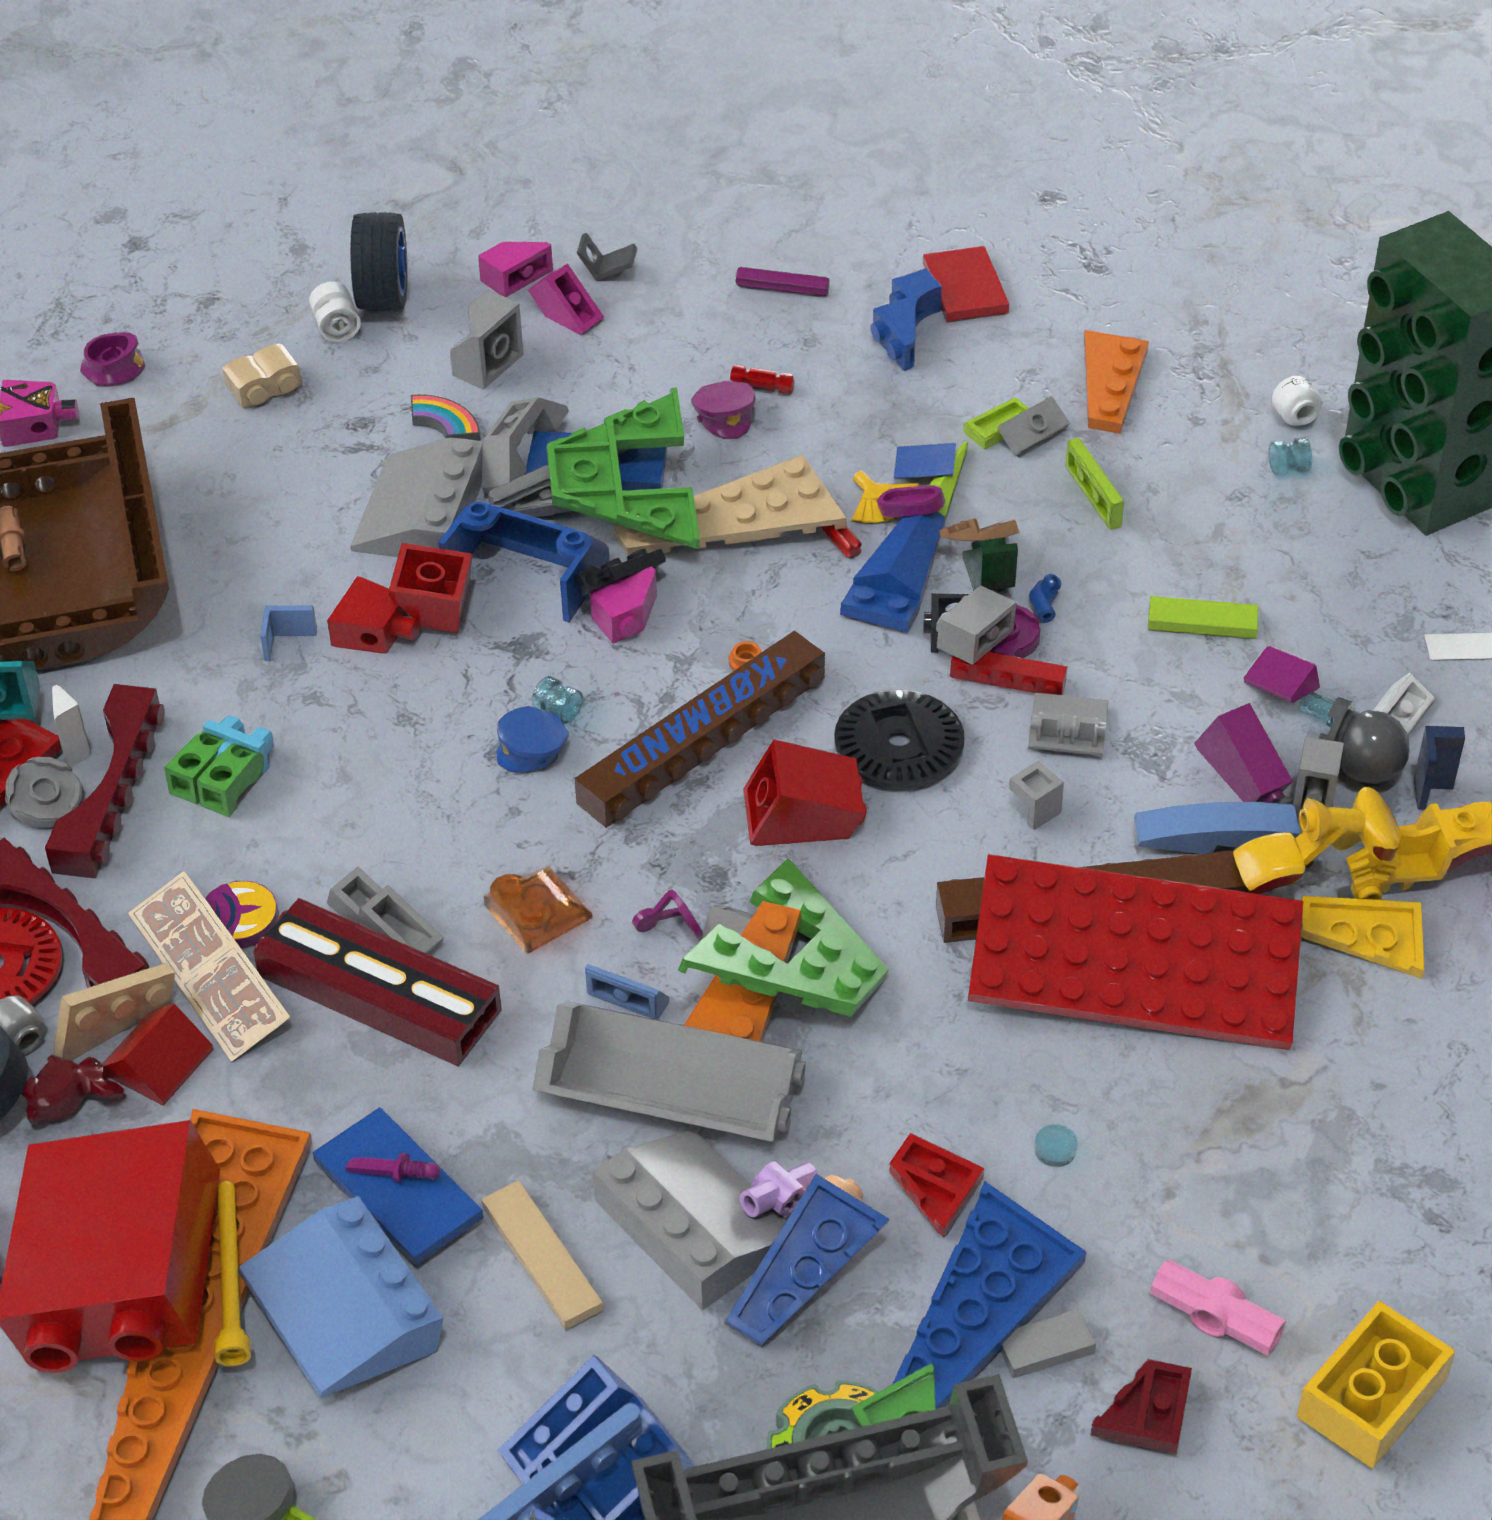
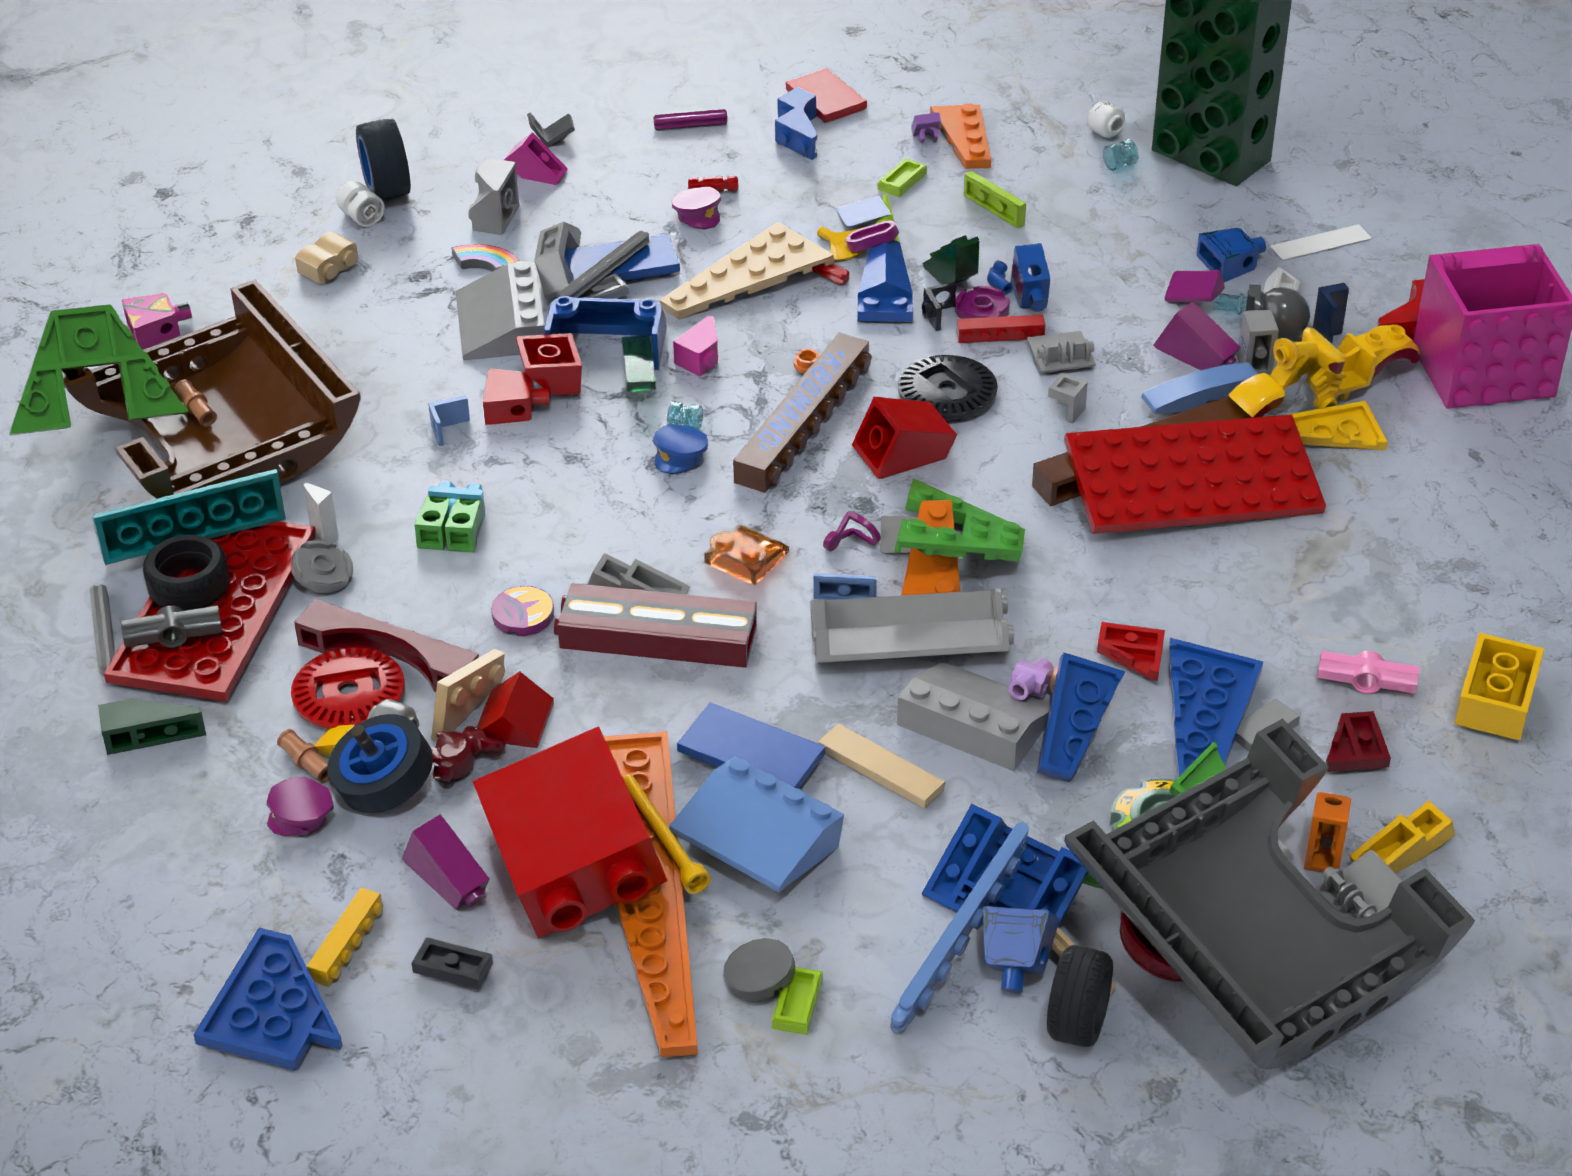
camera: 20 degrees left, 5 degrees down
(84, 835) = (370, 583): dark red arch -> none
(112, 359) = (196, 271): magenta hat -> none
(209, 966) = (542, 657): sticker -> none
(397, 1168) = (750, 734): magenta piece -> none
(514, 265) = (481, 144): dark pink slope -> none
(536, 613) = (638, 363): none -> clear green slope
(588, 477) = (631, 265): bright green wing -> none
(615, 570) = (684, 322): black hinge -> none
(969, 530) = (931, 242): medium nougat slope -> none
(976, 624) = (967, 300): light grey brick -> none
(1033, 425) = (929, 173): light grey plate -> none
(1055, 1145) = (1201, 607): clear light blue tile -> none
(1063, 355) = (926, 124): none -> medium lavender tile
(1075, 622) = (1029, 289): none -> blue torso
(1203, 617) = (1115, 266): lime tile -> none
(1359, 634) = (1229, 251): none -> blue torso

